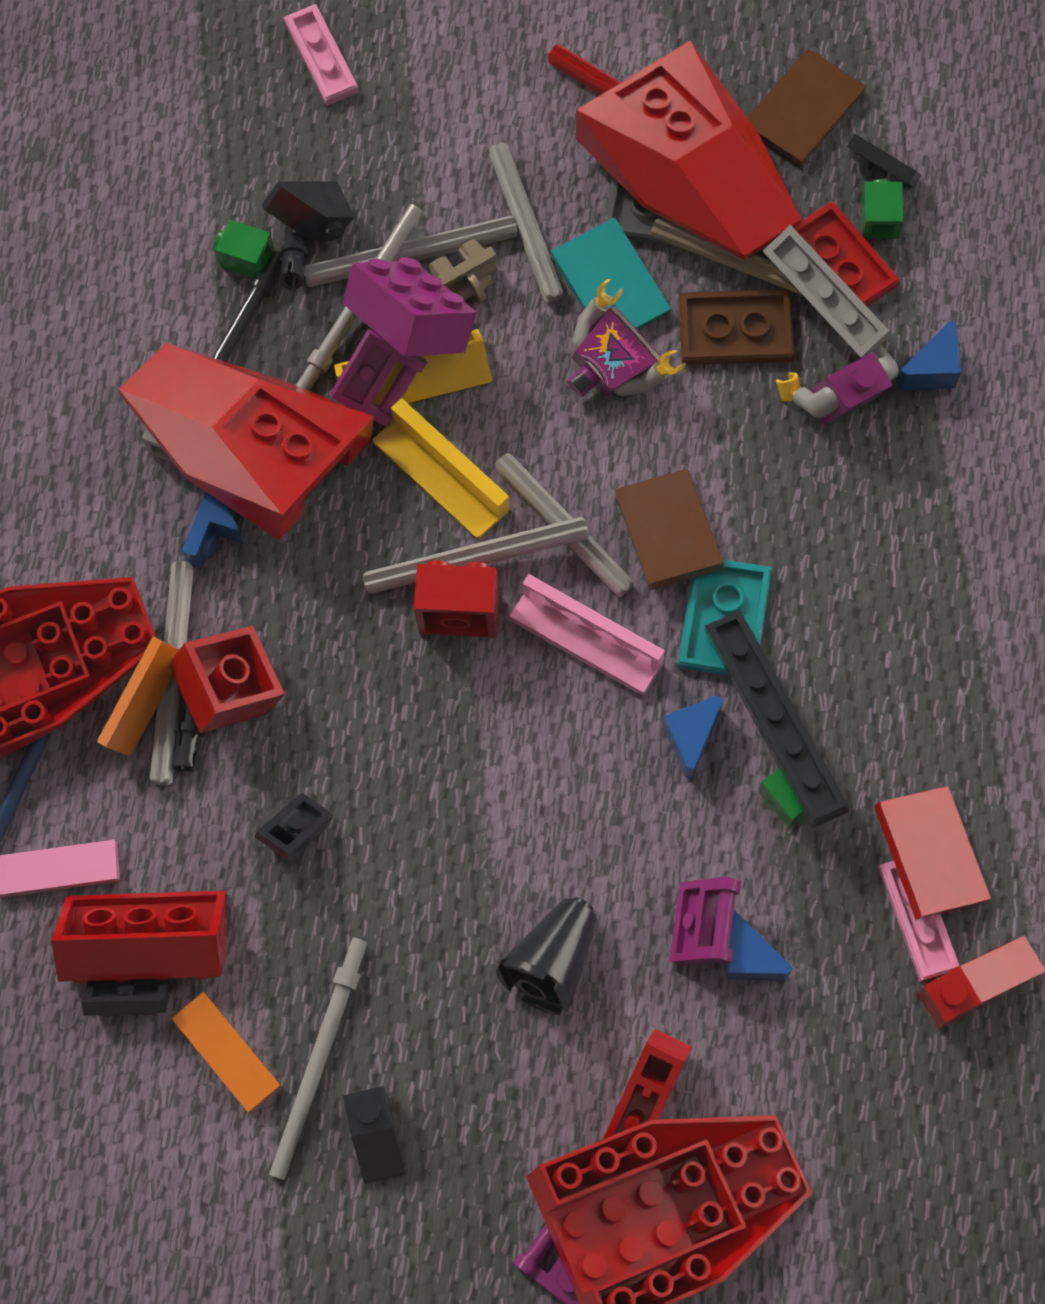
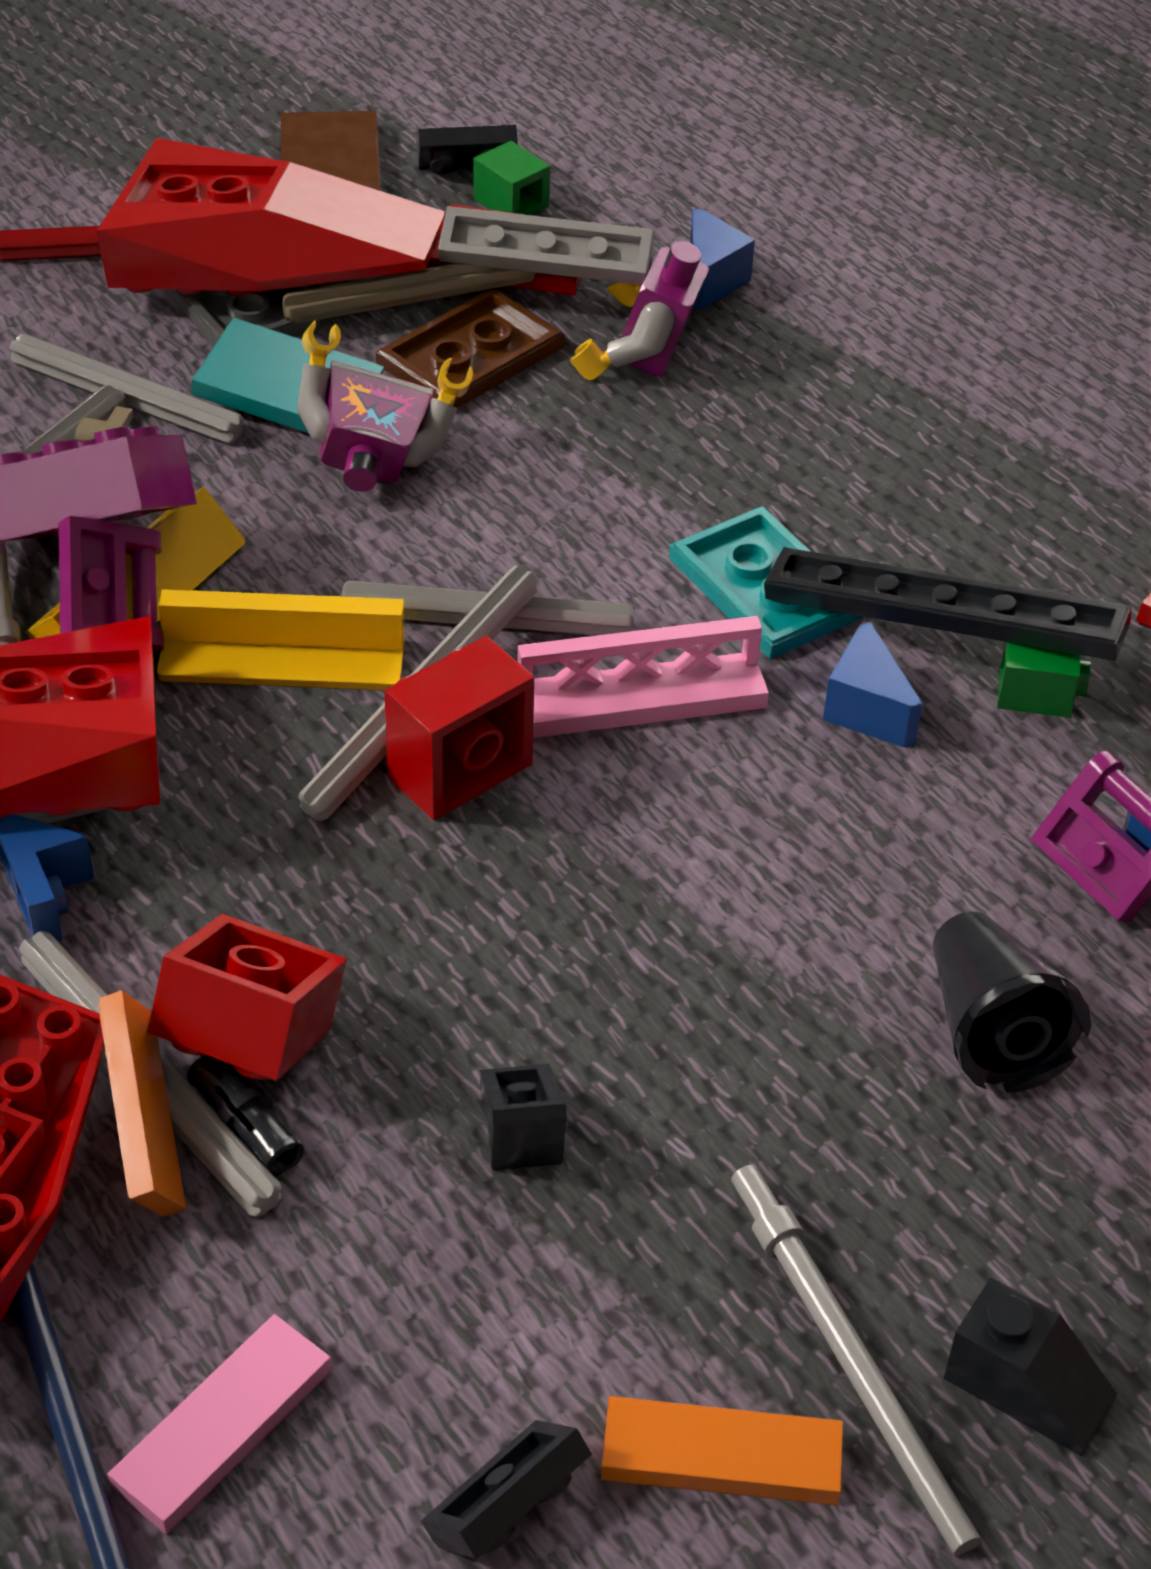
camera: 50 degrees left, 25 degrees down
(141, 936) = (448, 1399): red slope -> none
(669, 529) = (614, 537): reddish brown tile -> none

